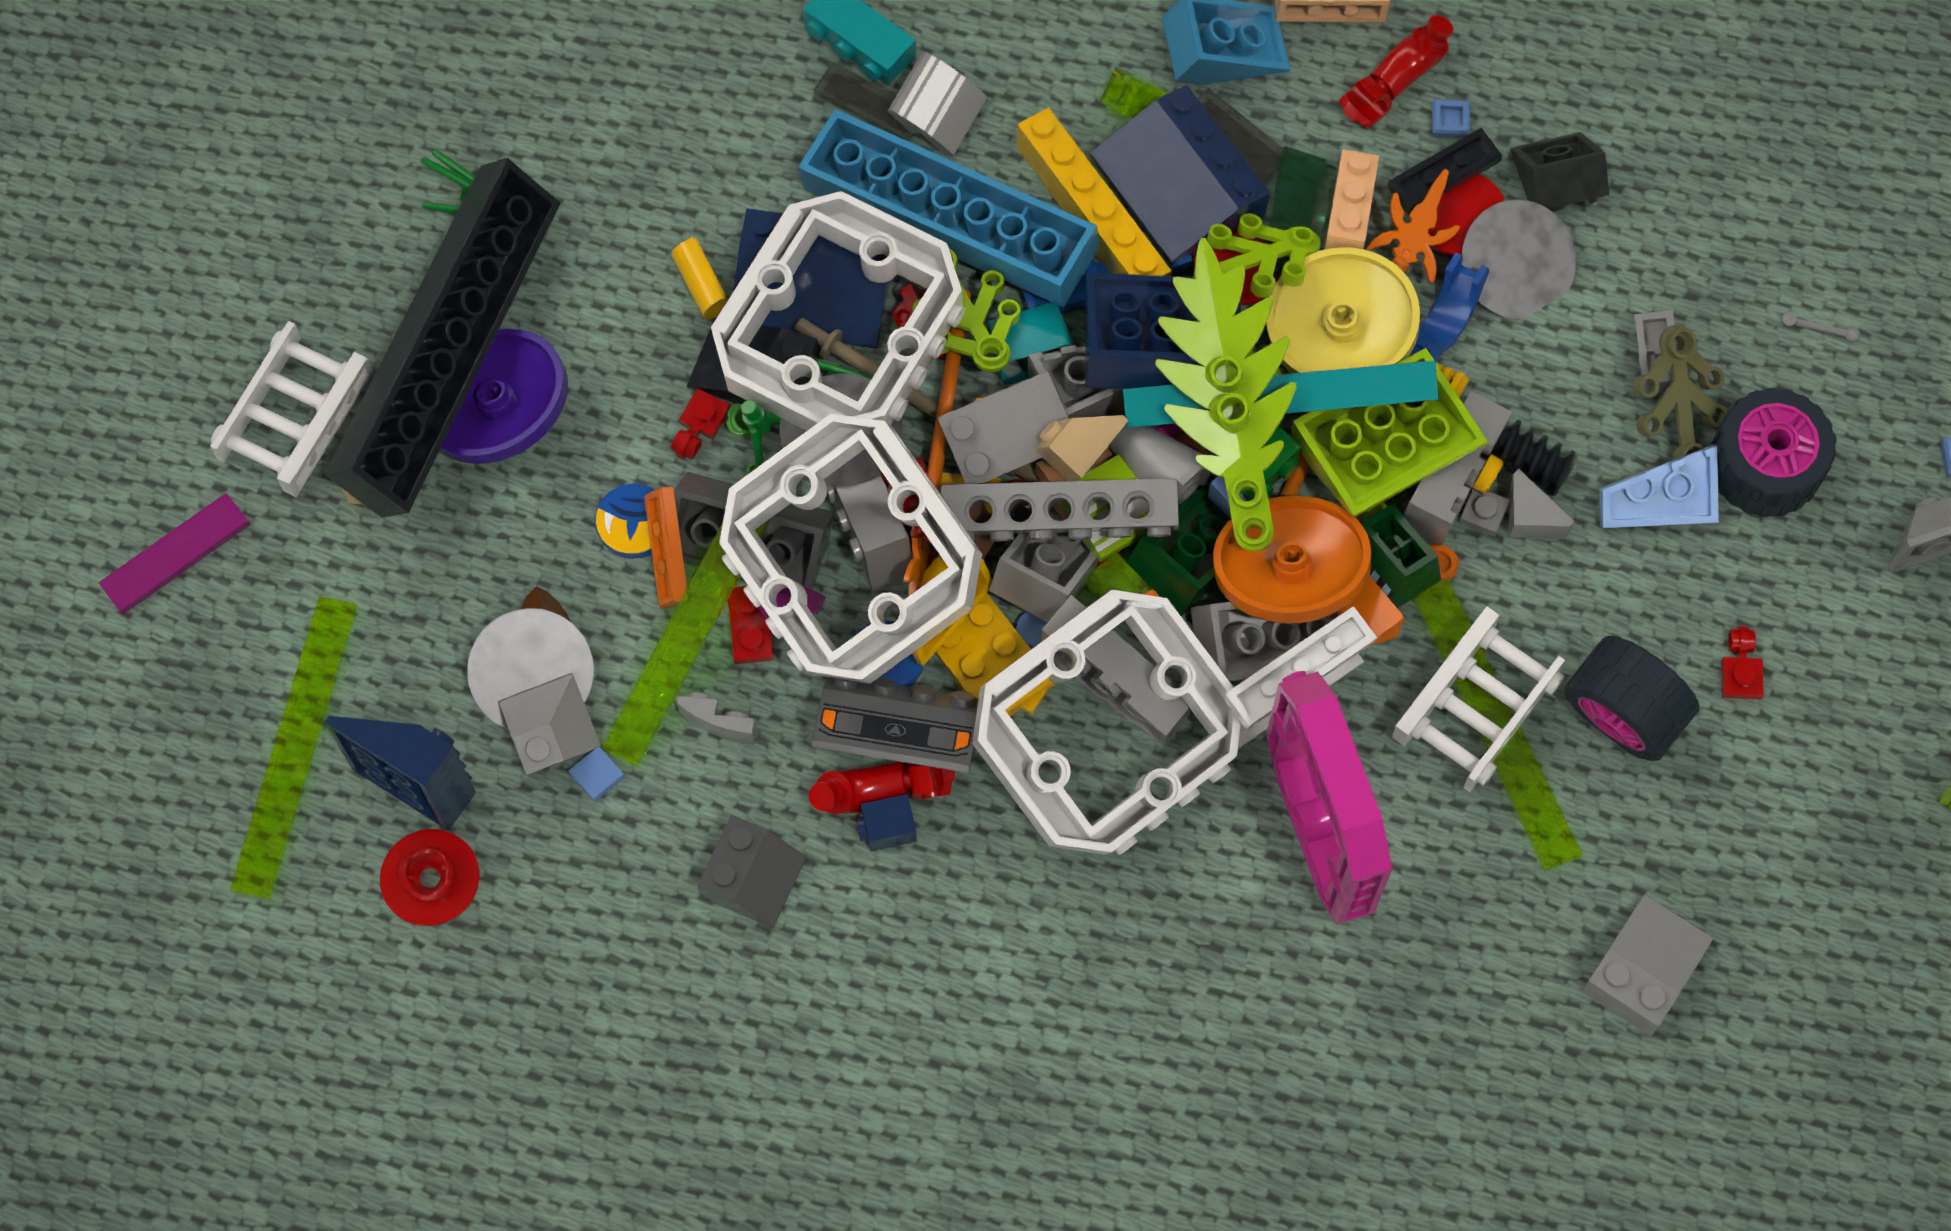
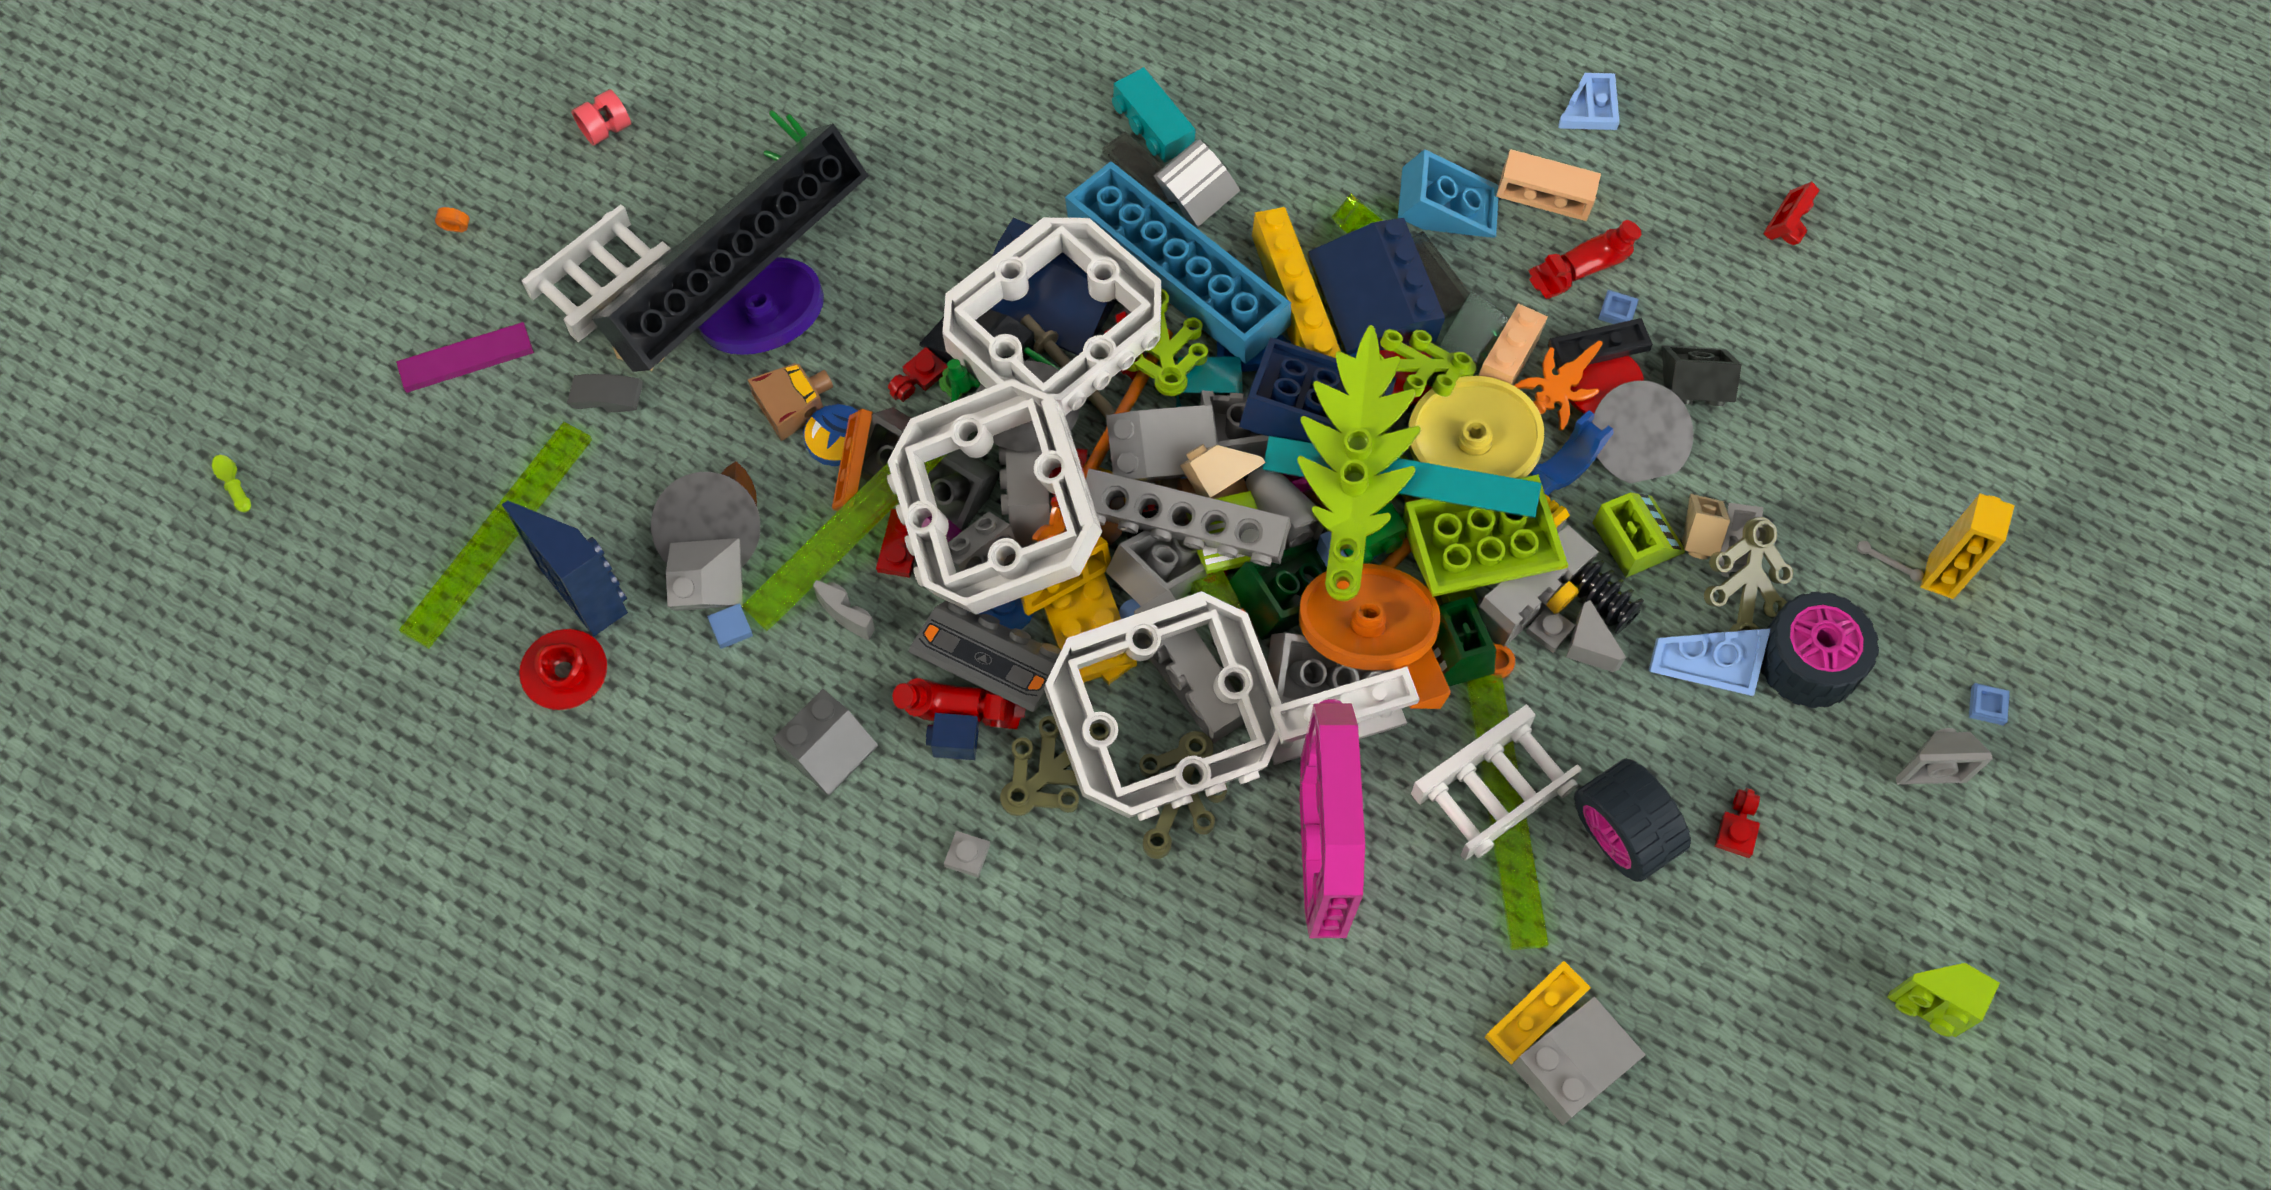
camera: 15 degrees right, 5 degrees down
(93, 394) = (452, 219): none -> orange tile
(210, 227) = (591, 121): none -> coral wheel
(353, 547) = (608, 391): none -> dark grey slope
(565, 493) = (789, 397): none -> medium nougat torso
(699, 278) = (958, 256): yellow brick -> none
(845, 603) = (973, 543): none -> light grey brick
(944, 945) = (967, 854): none -> light grey plate
(1002, 830) = (1050, 772): none -> olive plant
(1136, 768) = (1196, 807): none -> olive plant
(1545, 376) = (1636, 533): none -> lime slope
(1591, 929) = (1537, 1012): none -> yellow plate
(1615, 347) = (1705, 526): none -> tan slope
(1898, 295) = (1967, 545): none -> yellow brick

